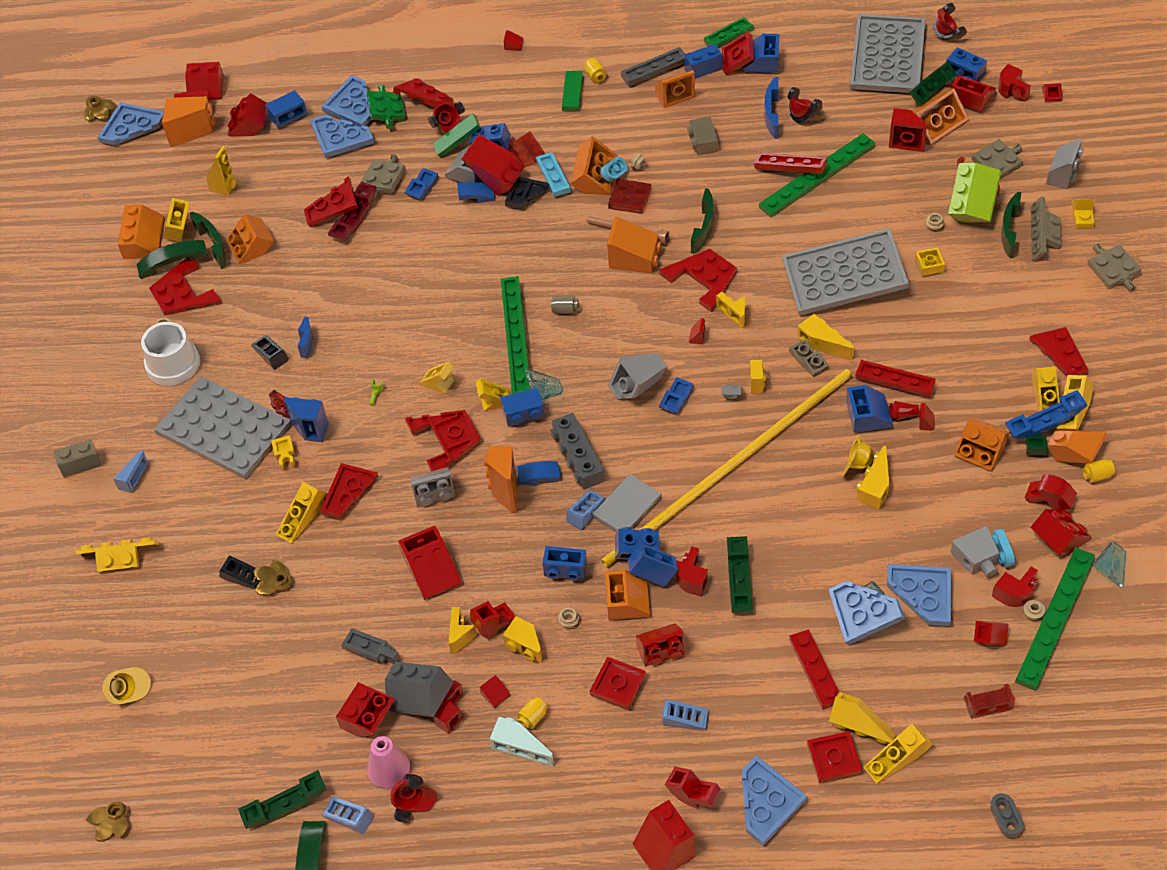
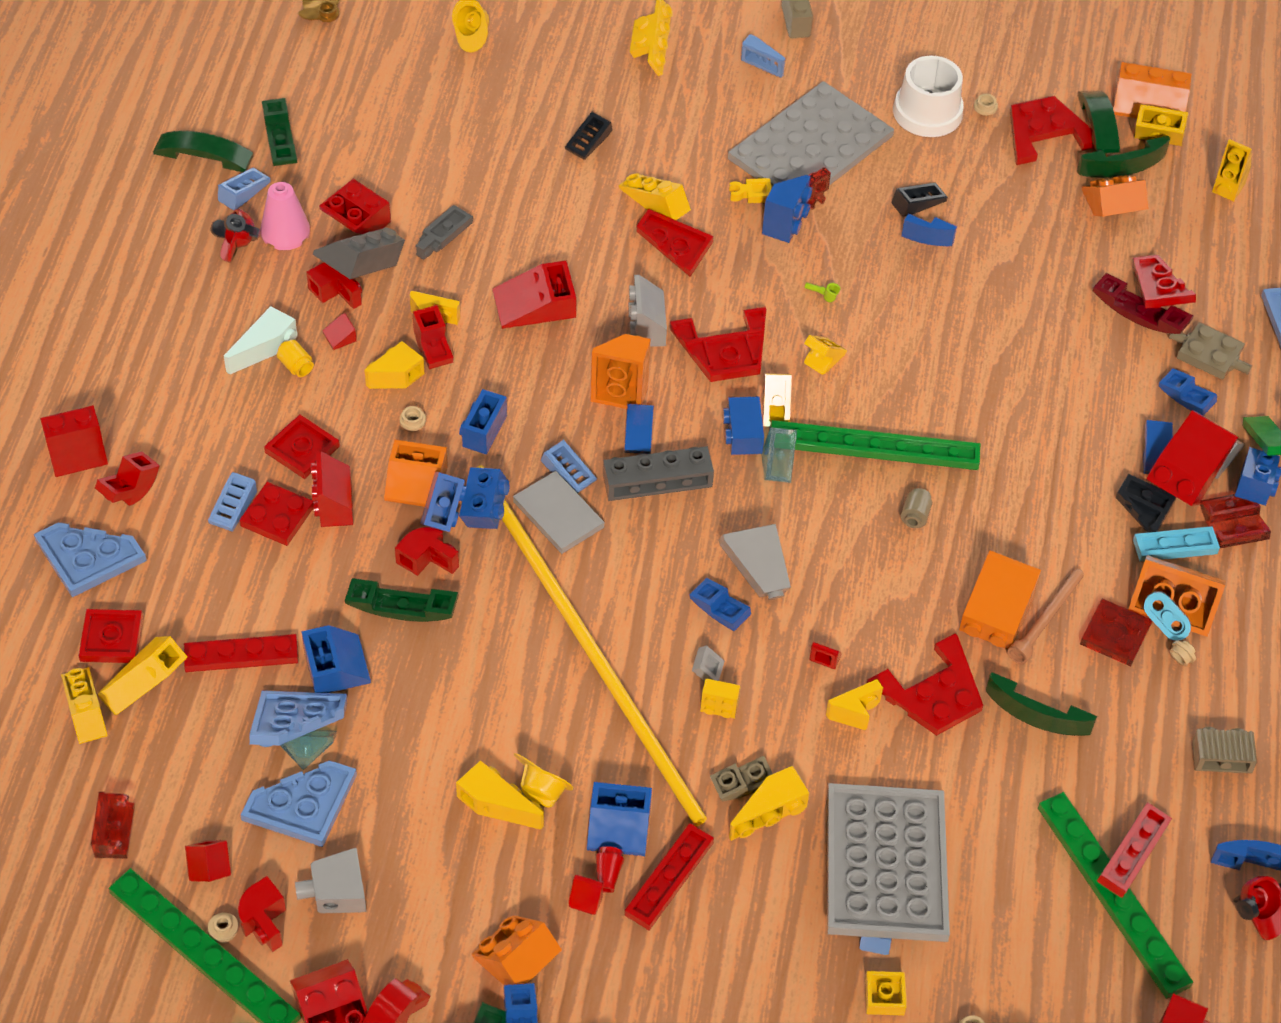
camera: 95 degrees right, 0 degrees up
(269, 578) = (570, 160): pearl gold plate -> none
(684, 683) = (277, 513): none -> red plate
(807, 602) = (334, 659): none -> blue slope
(1006, 554) = (324, 918): medium azure plate -> none

